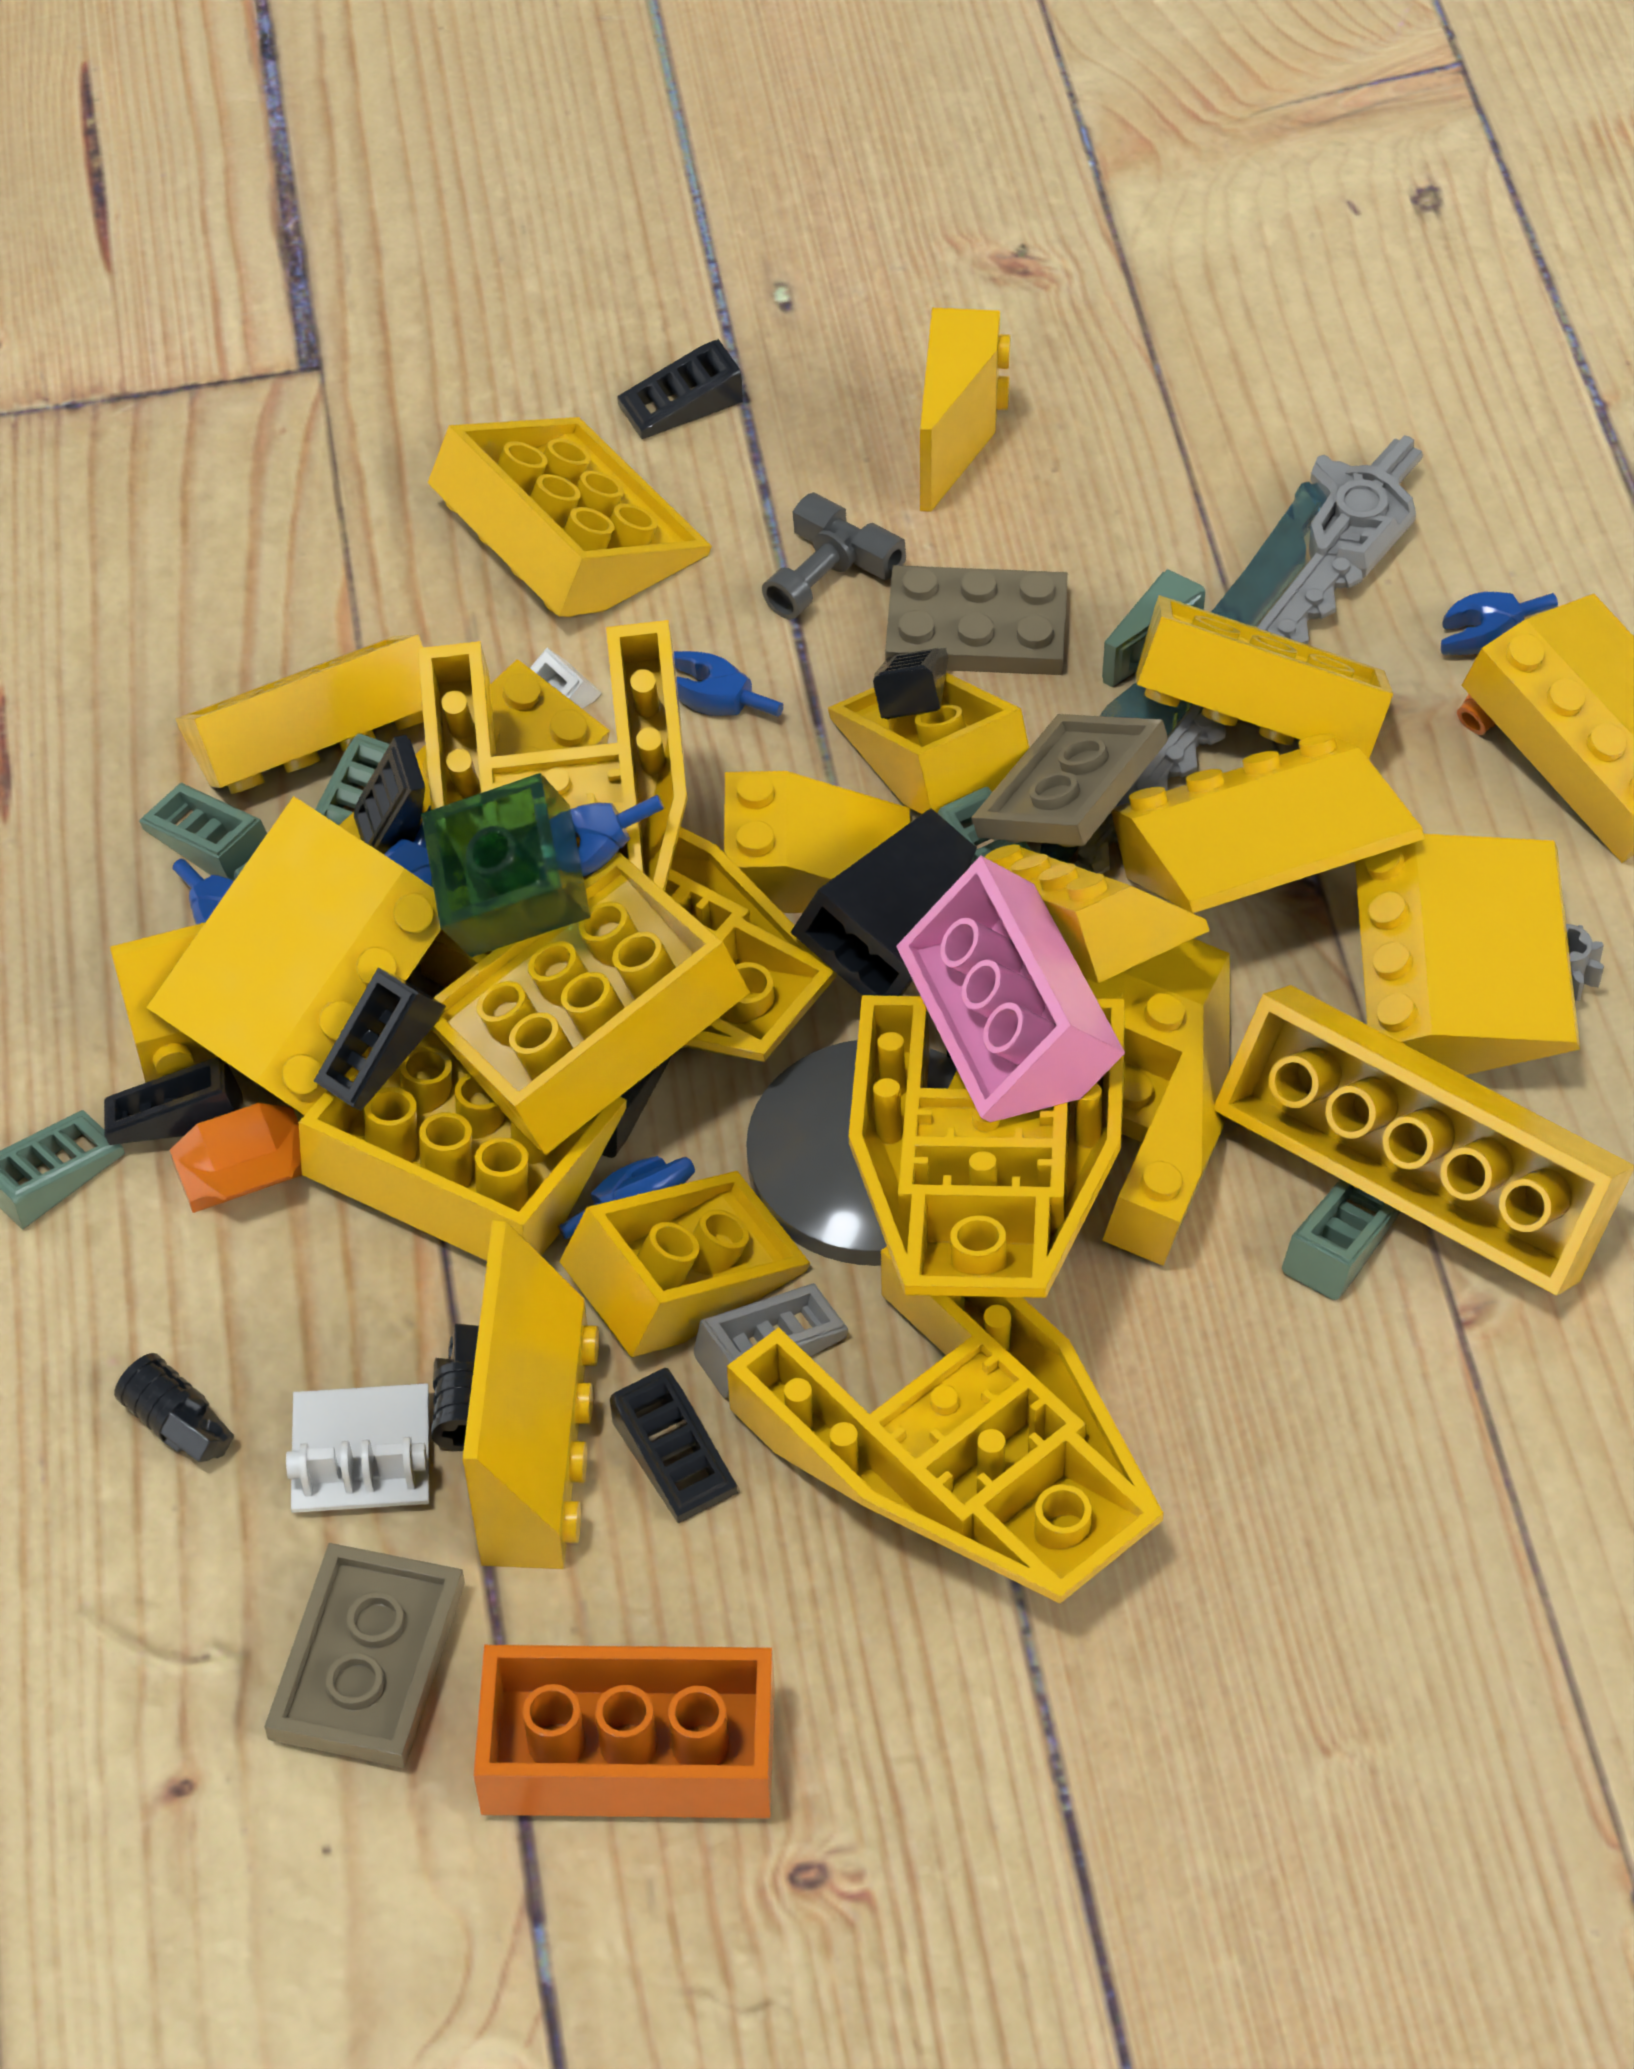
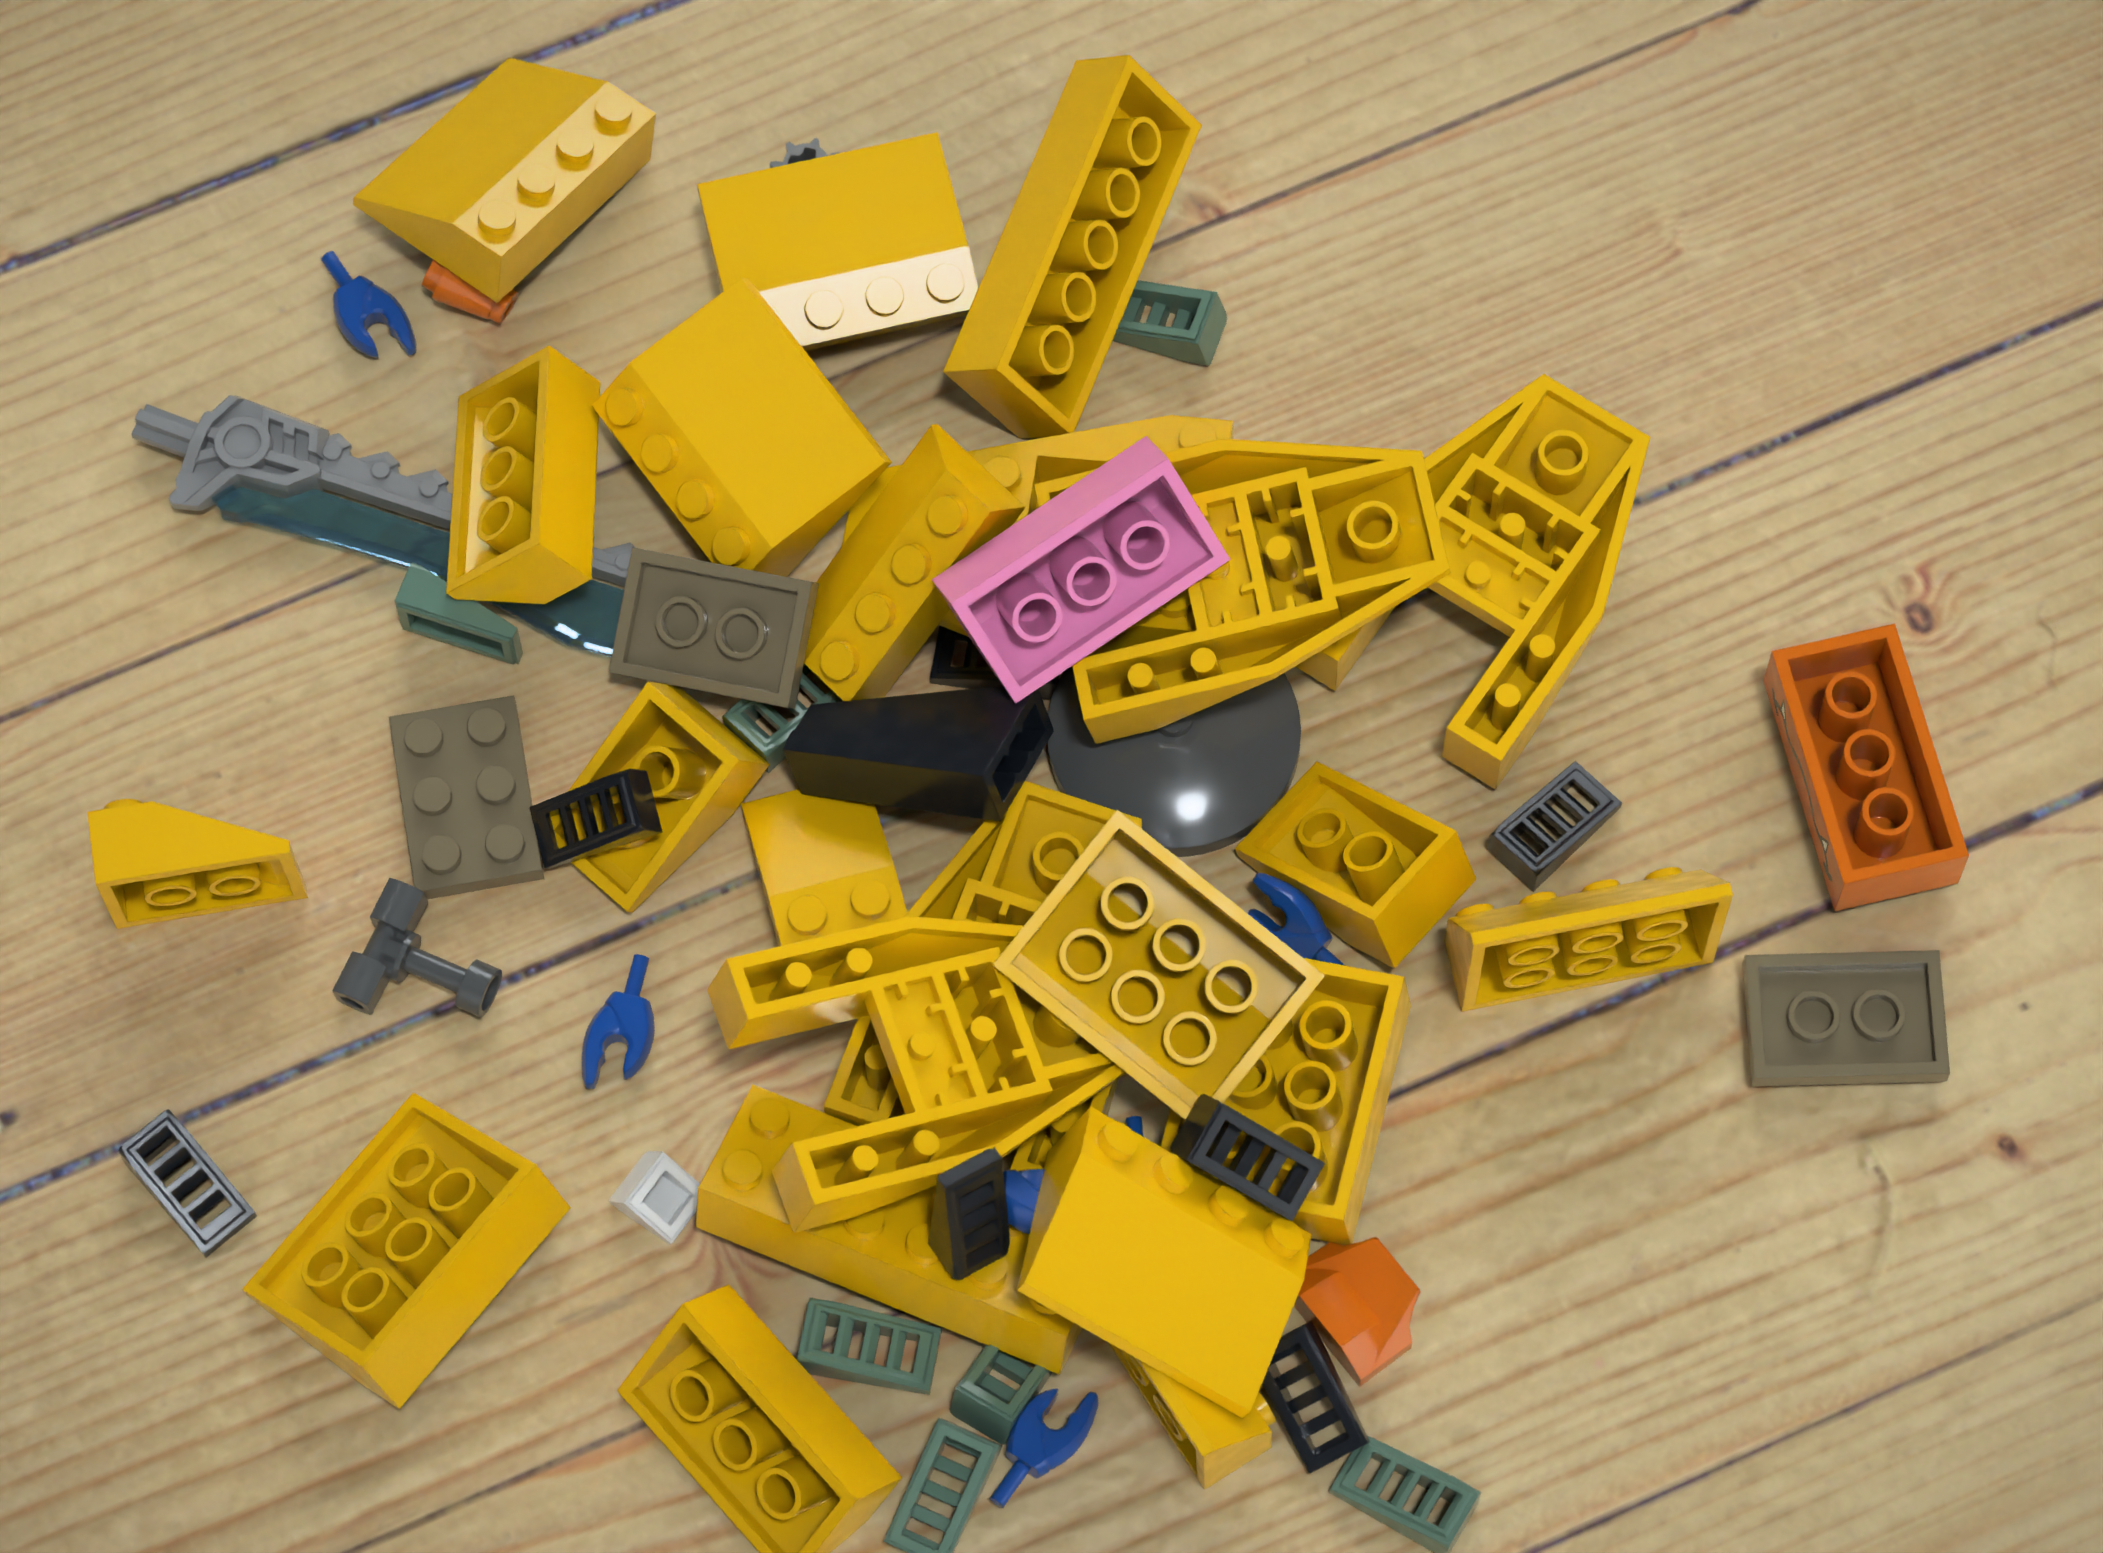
camera: 105 degrees left, 15 degrees up
(172, 1408) = (1651, 1271): black hinge -> none
(359, 1448) = (1633, 1095): white hinge -> none
(453, 1388) = (1552, 1017): black hinge -> none
(505, 865) = (1067, 1043): clear green brick -> none
(604, 830) = (984, 980): blue hand -> none
(728, 1334) = (1445, 797): light grey slope -> none

